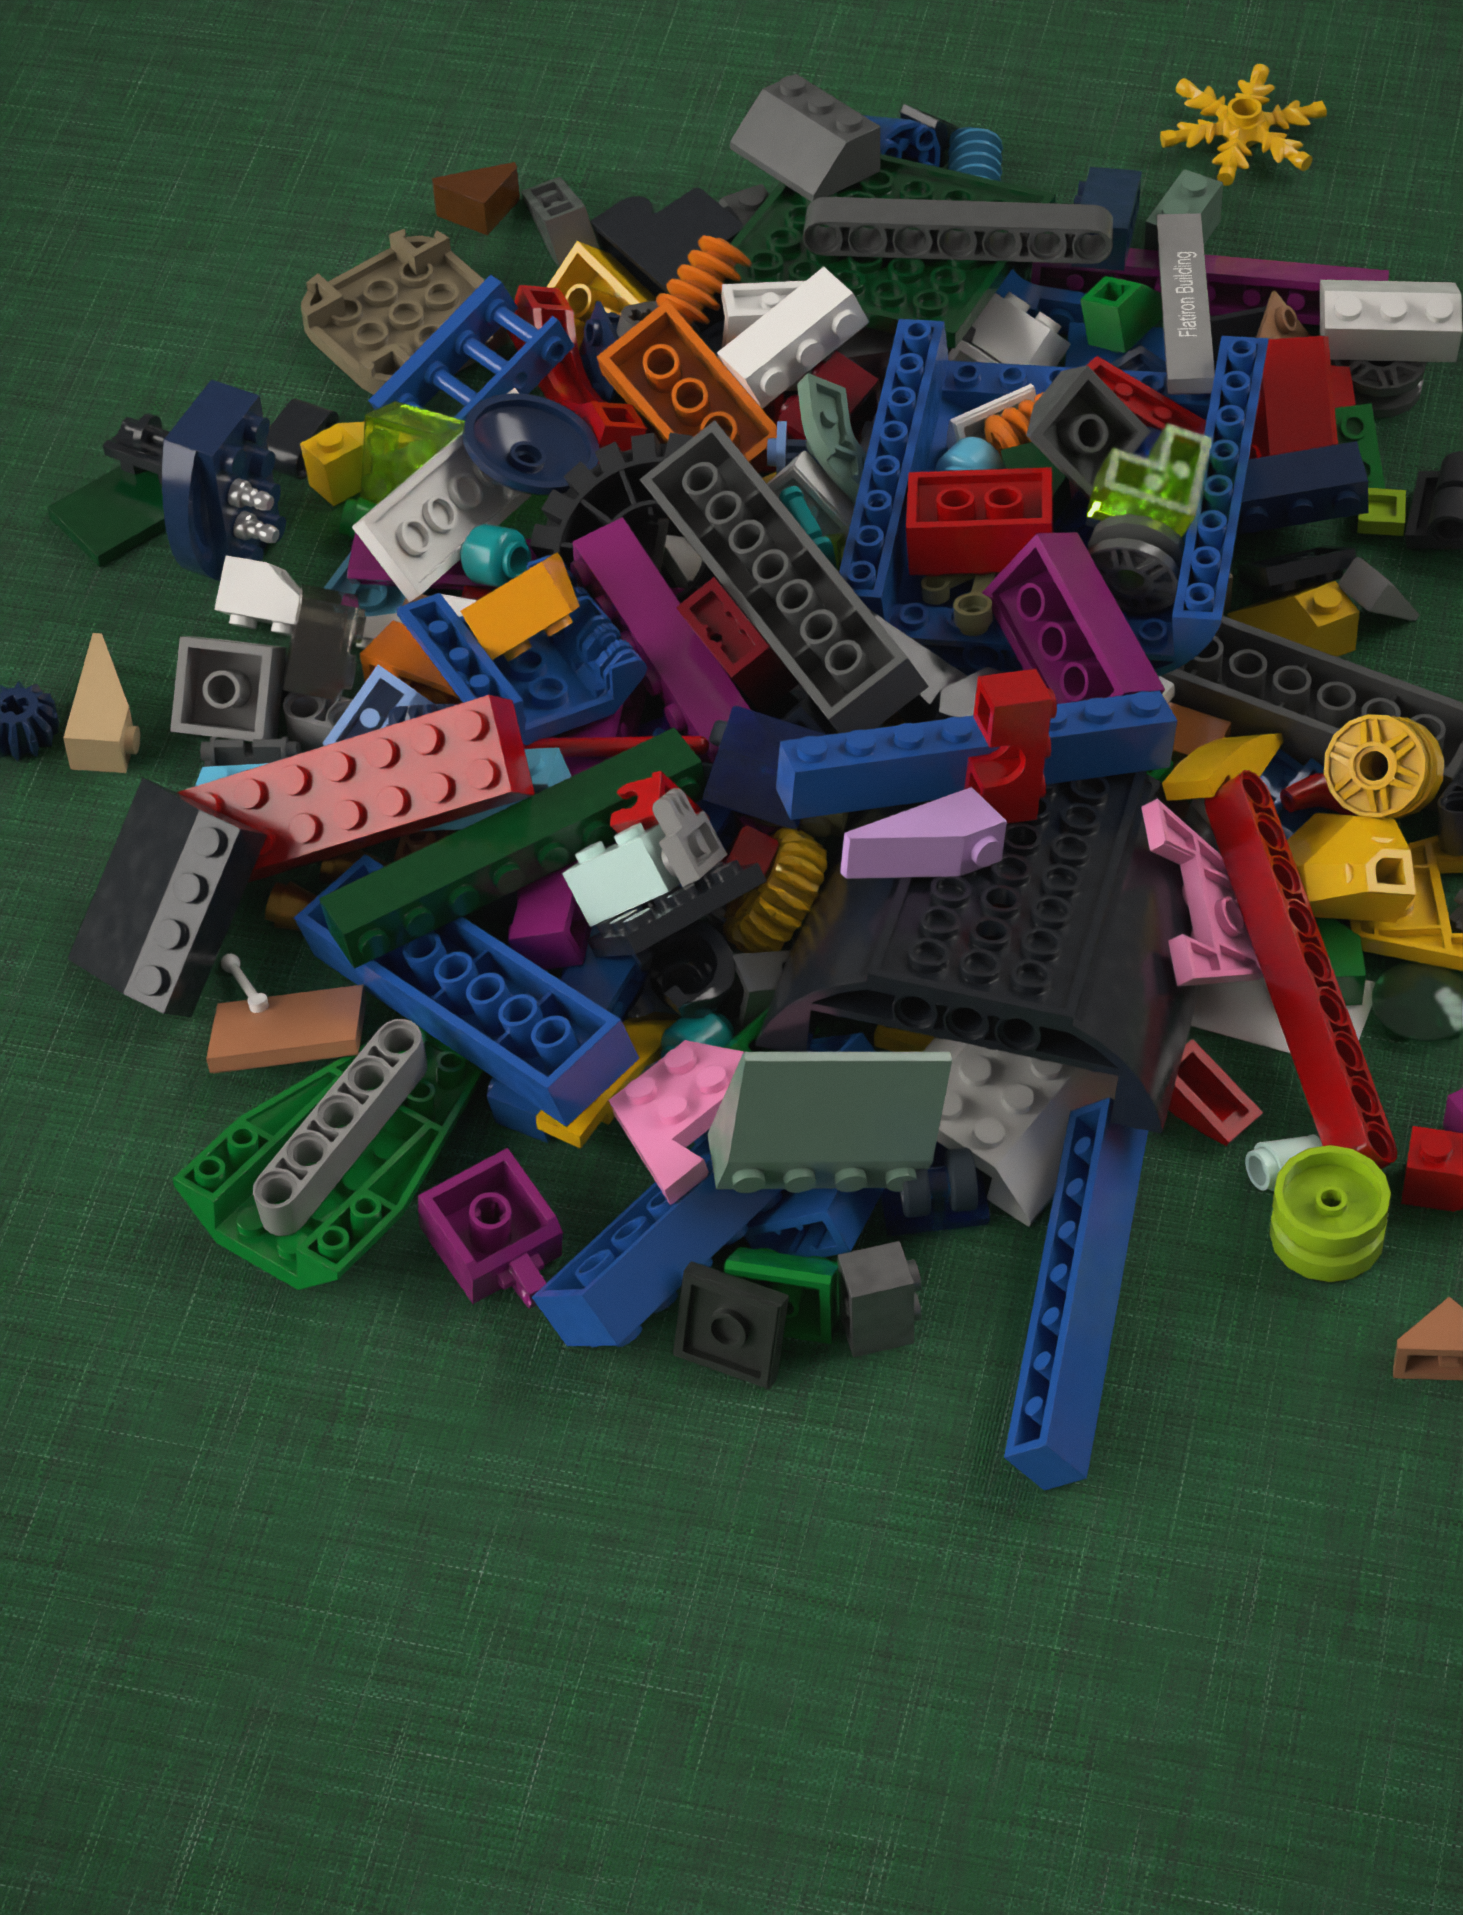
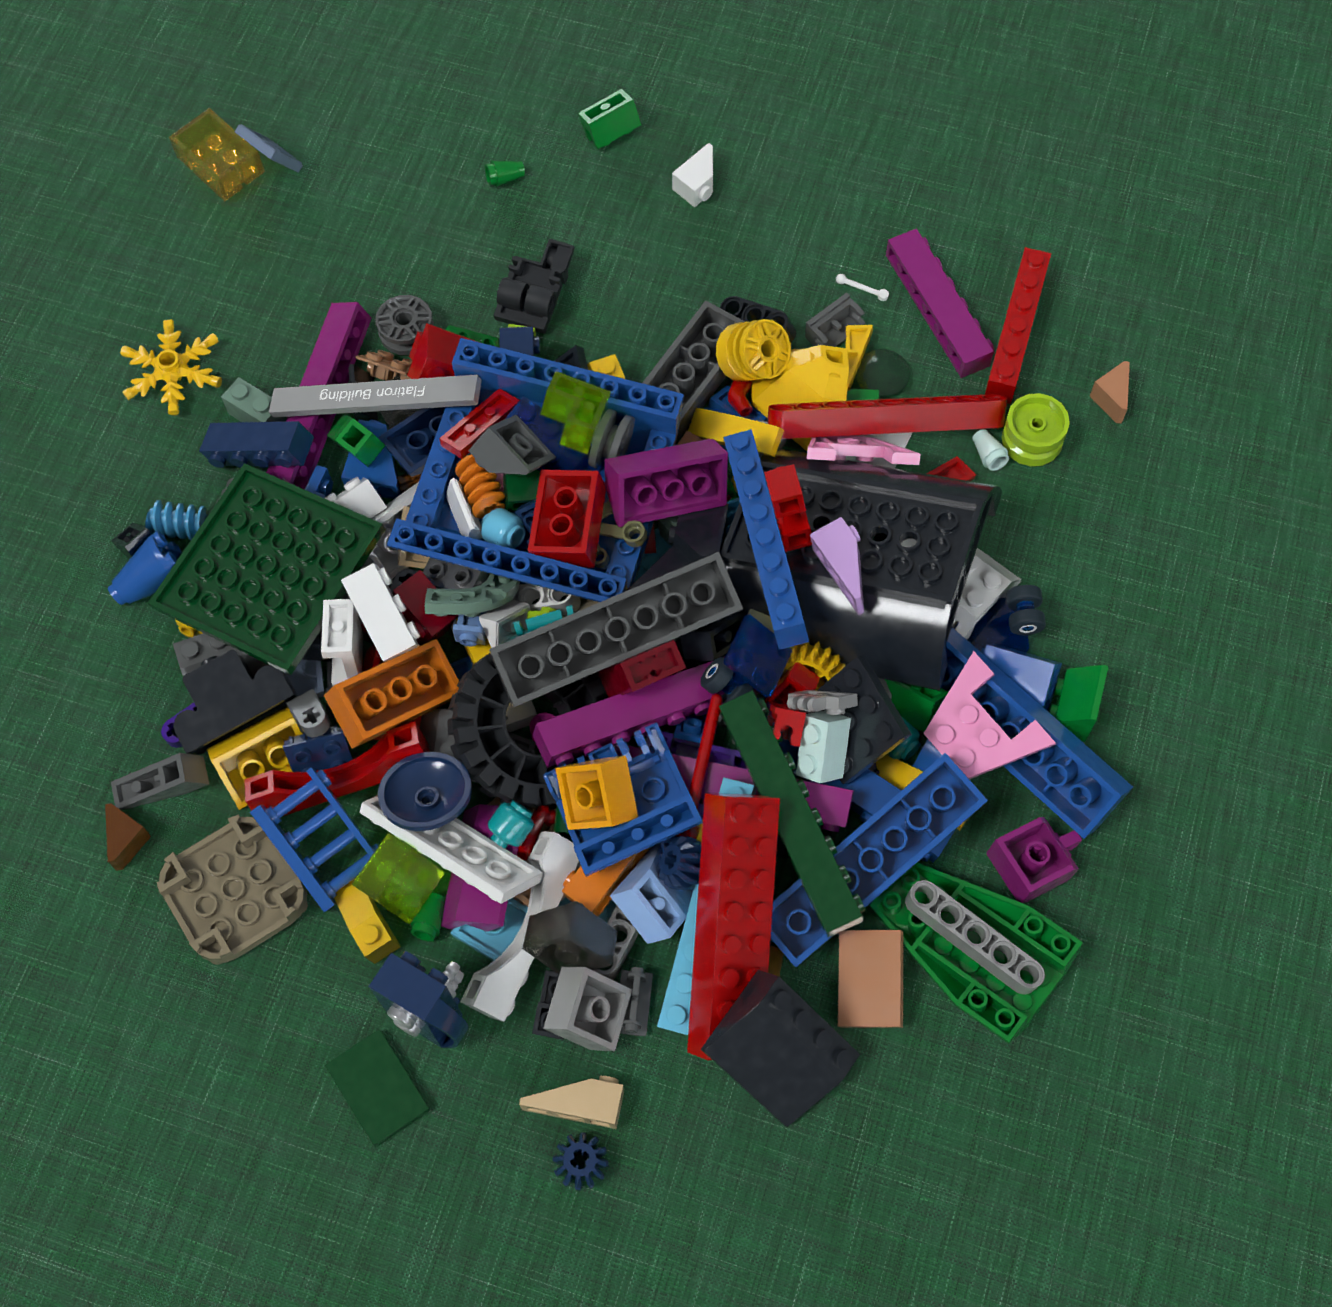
camera: 85 degrees left, 15 degrees up
(138, 445) = (346, 1063): black hips -> none
(257, 1001) = (847, 996): white hinge -> none
(293, 426) = (339, 966): black beam -> none
(703, 278) = (306, 668): orange piece -> none
(730, 1325) = (1110, 727): pearl dark grey tile -> none
(808, 139) = (163, 601): dark grey slope -> none
(828, 1120) = (1023, 650): sand green slope -> none
(878, 1298) = (1093, 646): flat silver brick -> none
(977, 218) = (284, 516): dark grey beam -> none
(1076, 1298) = (1091, 557): blue brick -> none
(1375, 591) = (600, 345): light grey slope -> none
(1391, 320) = (384, 301): white slope -> none

